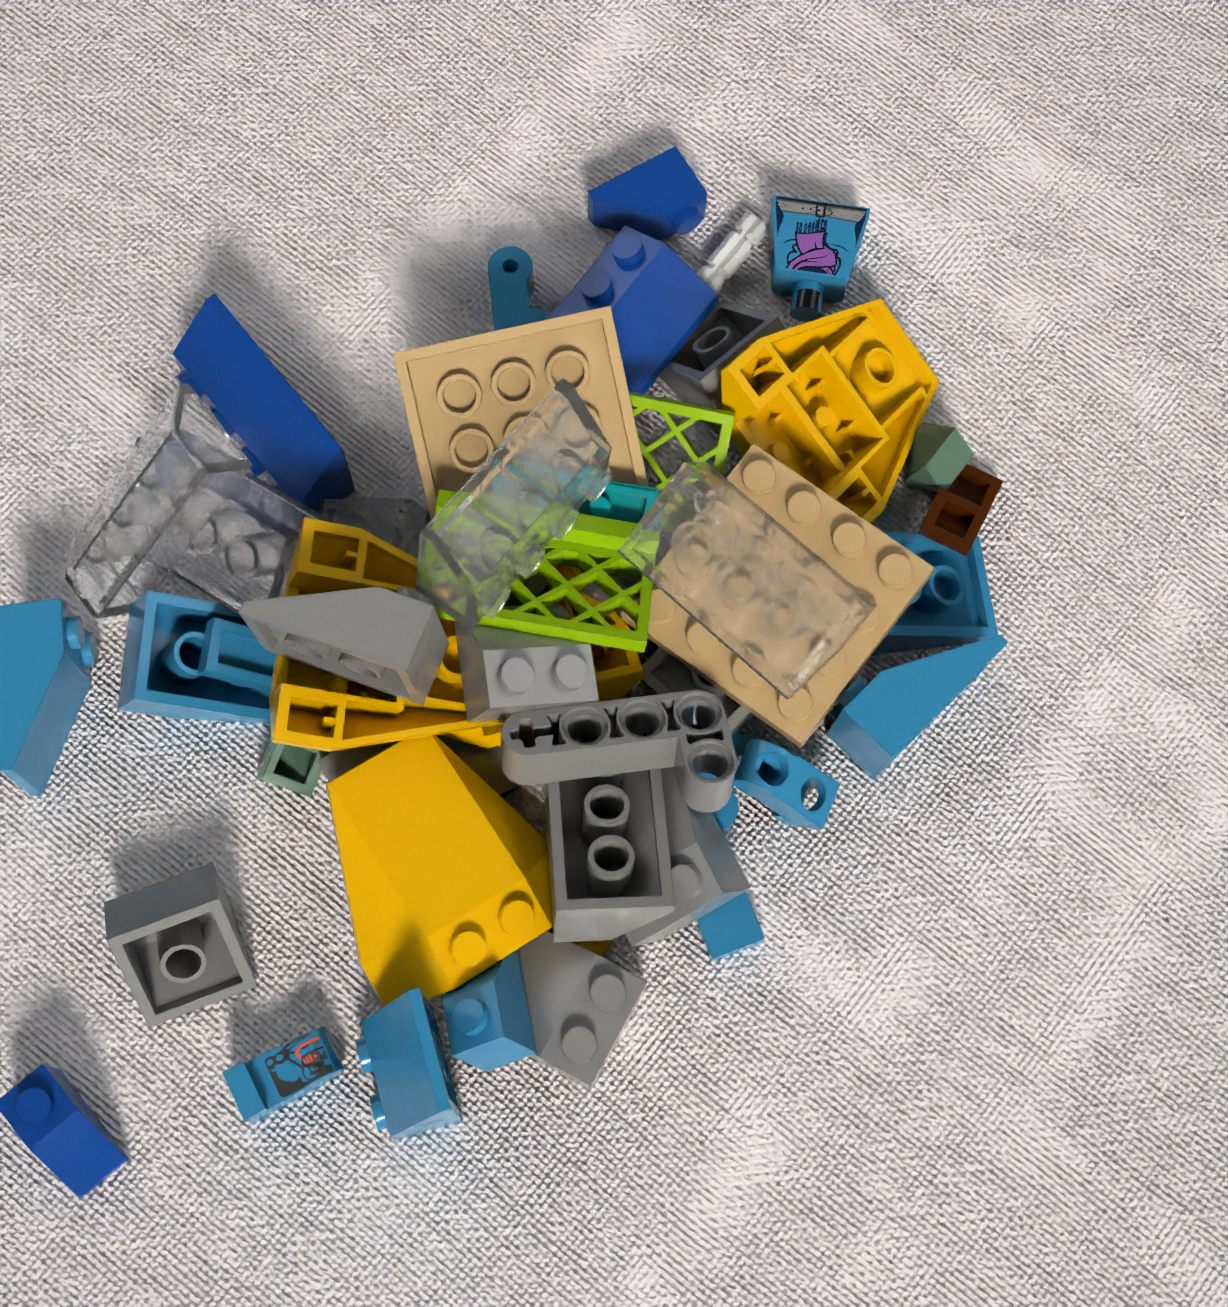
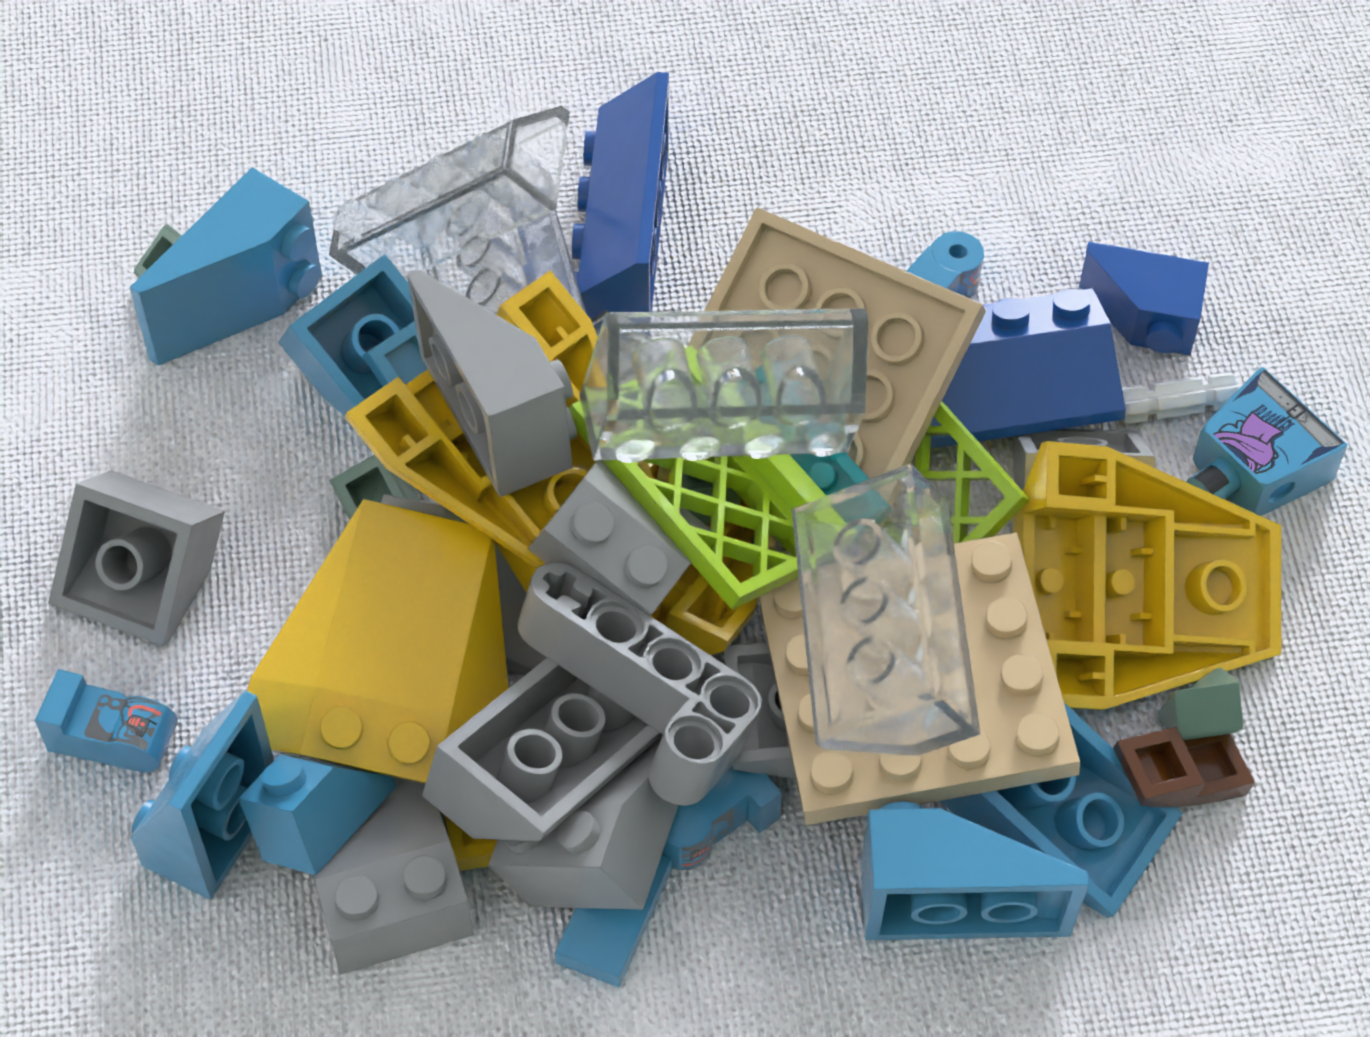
camera: 45 degrees right, 15 degrees down
(781, 783) = (765, 851): dark azure leg -> none

